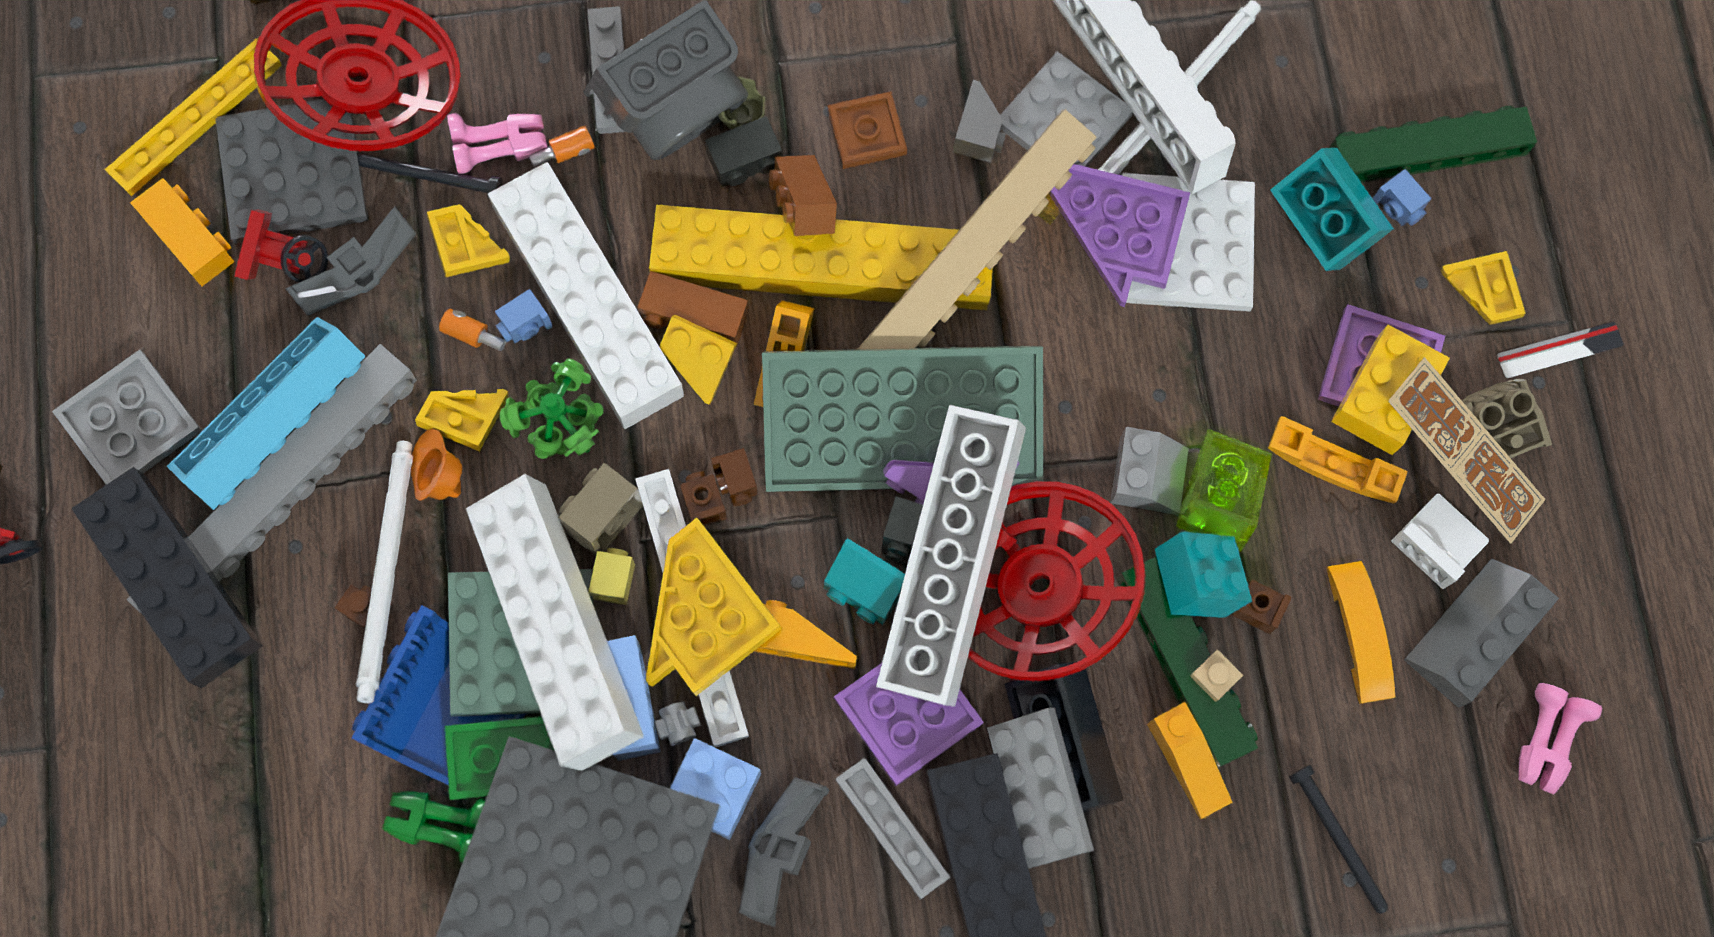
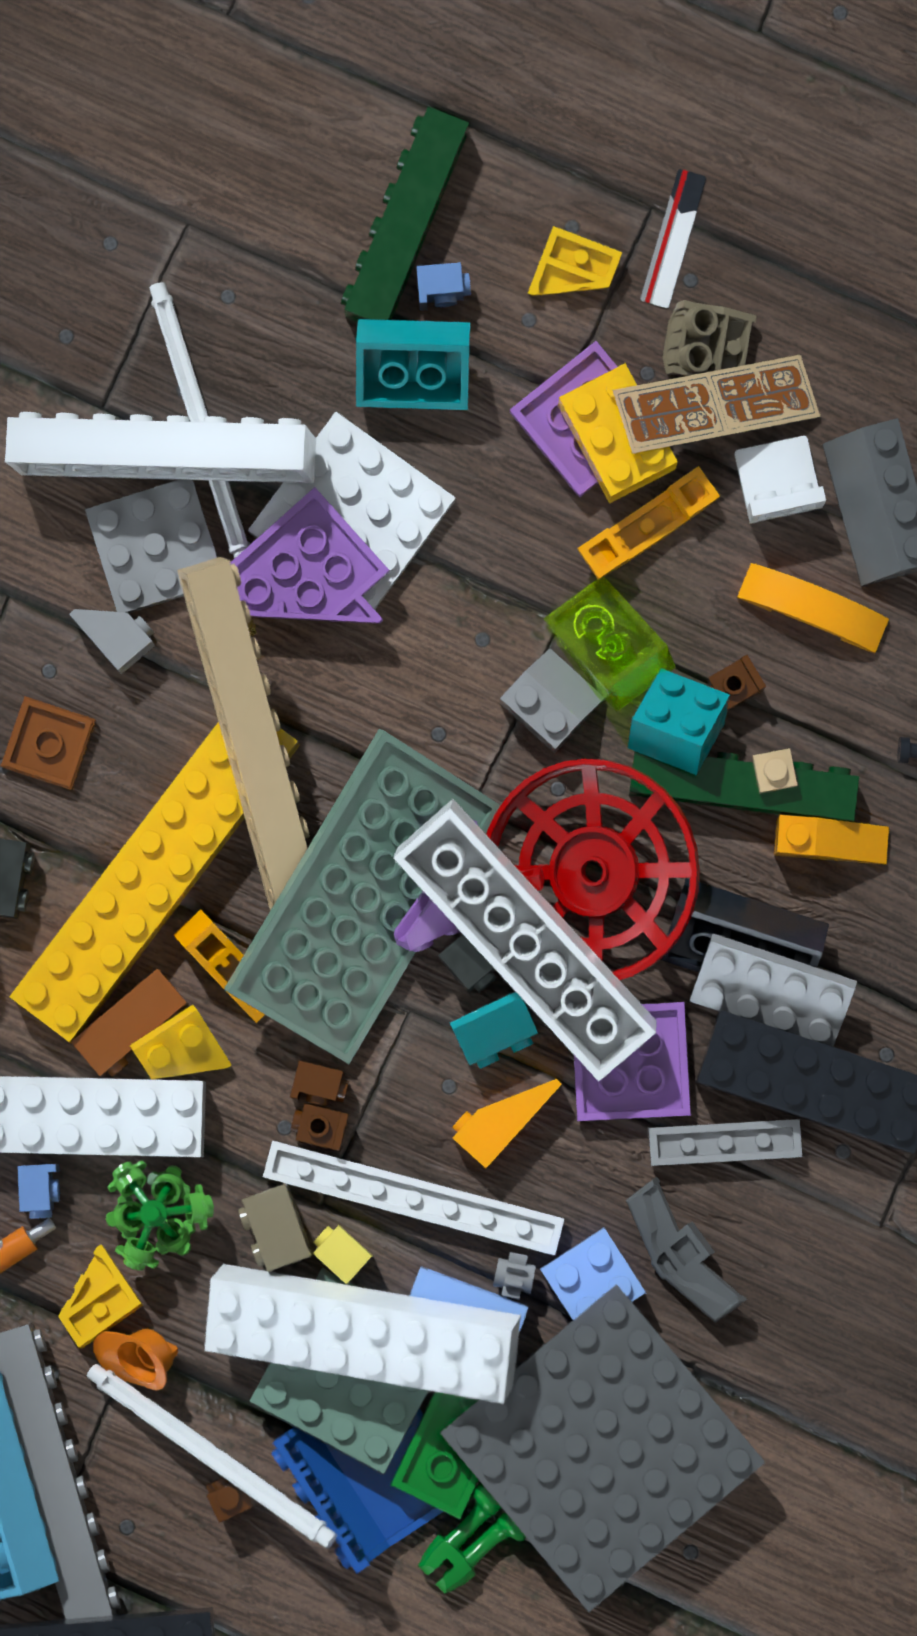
camera: 50 degrees left, 10 degrees up
(704, 613) = (432, 1190): yellow wing -> none
(803, 195) = (89, 853): dark orange brick -> none

